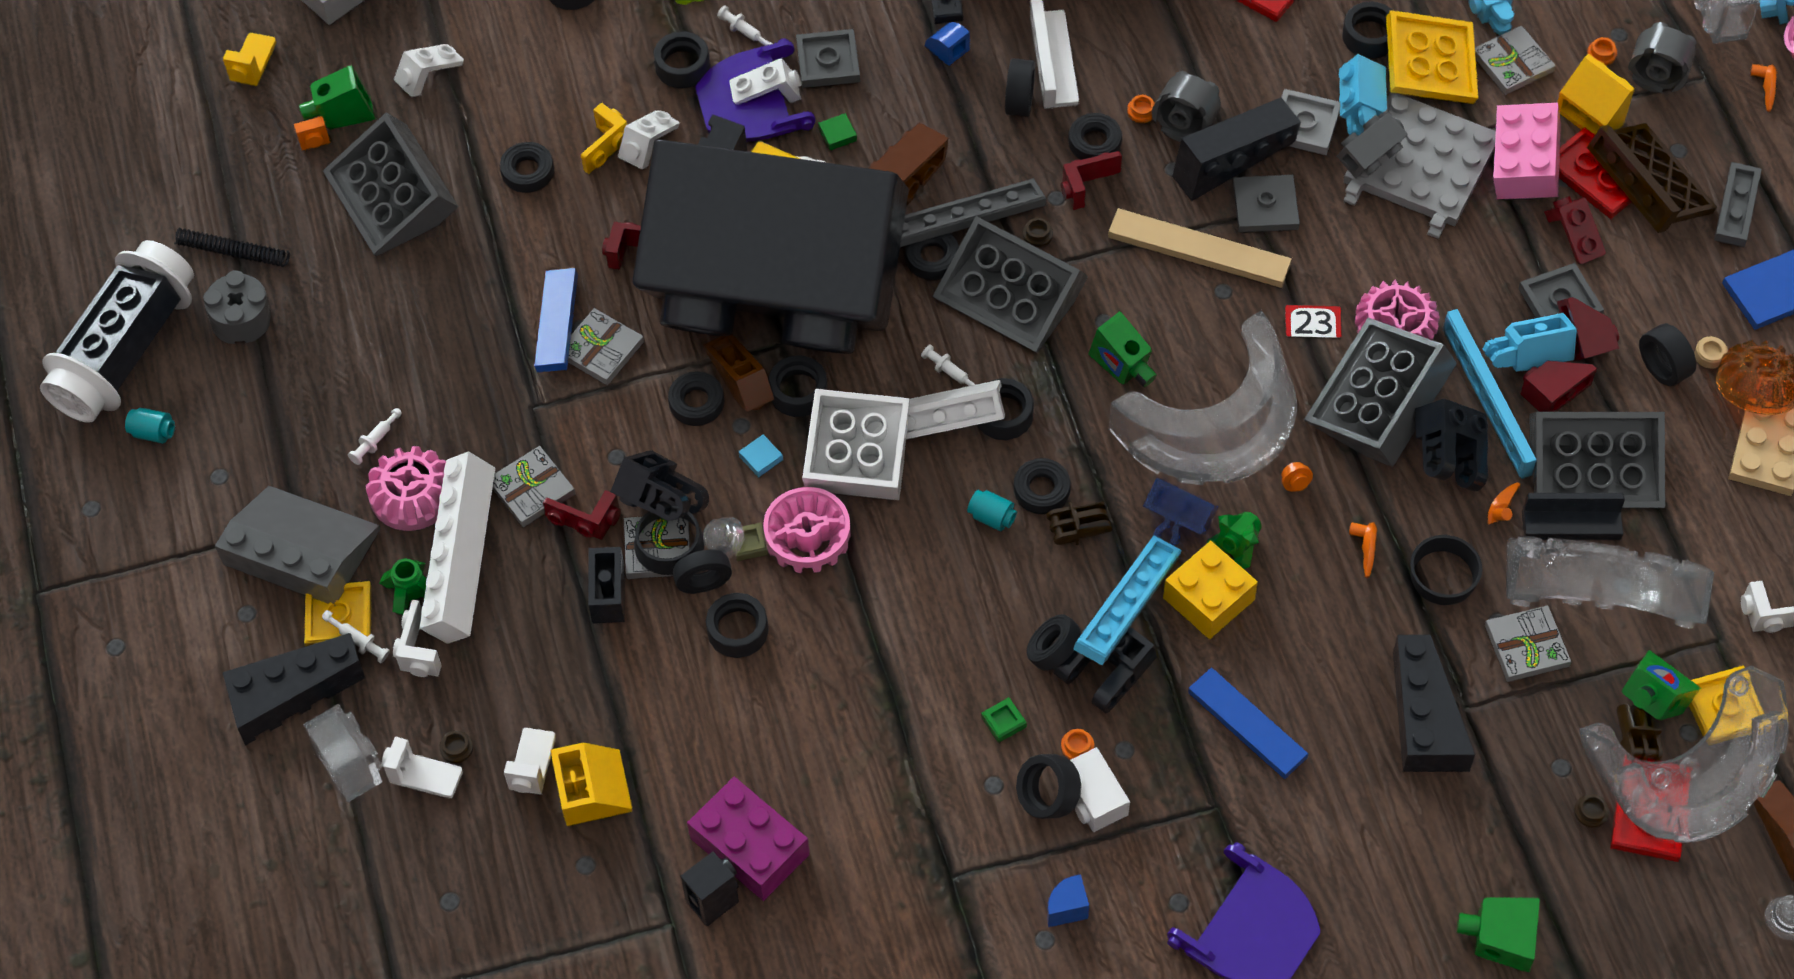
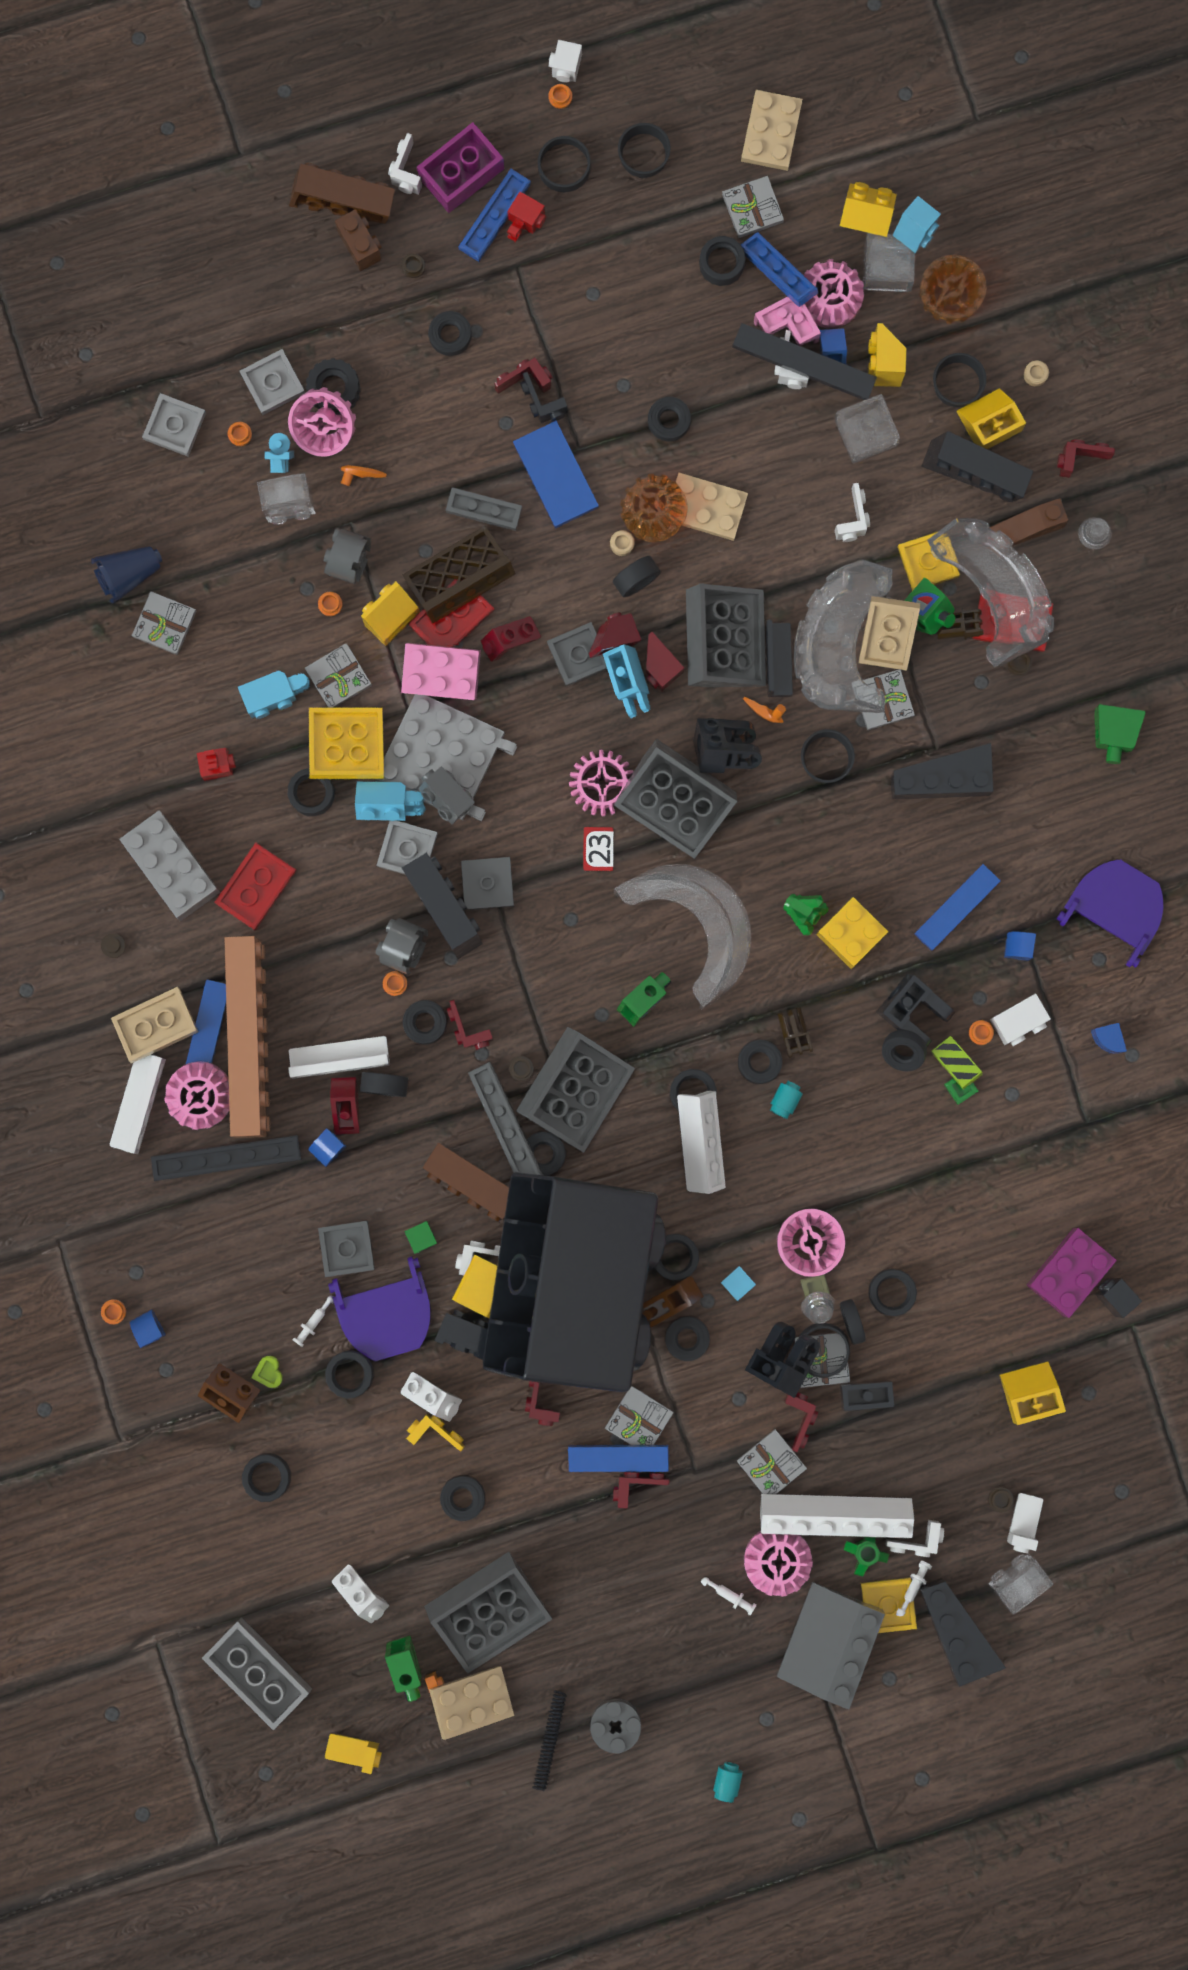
camera: 90 degrees left, 25 degrees up
(116, 330) = (652, 1822): brick -> none
(288, 164) = (471, 1702): none -> tan plate
(522, 325) = (621, 1492): none -> dark red bracket
(531, 761) = (1013, 1441): white bracket -> none
(764, 80) = (377, 1300): white bracket -> none
(856, 444) = (739, 1206): white slope -> none
(944, 364) = (654, 1136): white piece -> none
(993, 54) = (345, 1105): none -> dark red slope
(1028, 786) = (1018, 1042): black tyre -> none
(1037, 710) = (957, 1062): none -> lime tile
(1127, 600) = (874, 994): medium azure tile -> none
(1181, 507) = (783, 954): clear blue brick -> none
(1195, 796) = (1019, 945): none -> blue brick
(1199, 248) = (532, 937): tan tile -> none
(1296, 476) = (748, 865): orange plate -> none
(1369, 533) = (793, 812): orange bar -> none
(1489, 394) = (669, 715): medium azure tile -> none
(1618, 635) = (889, 633): none -> tan plate

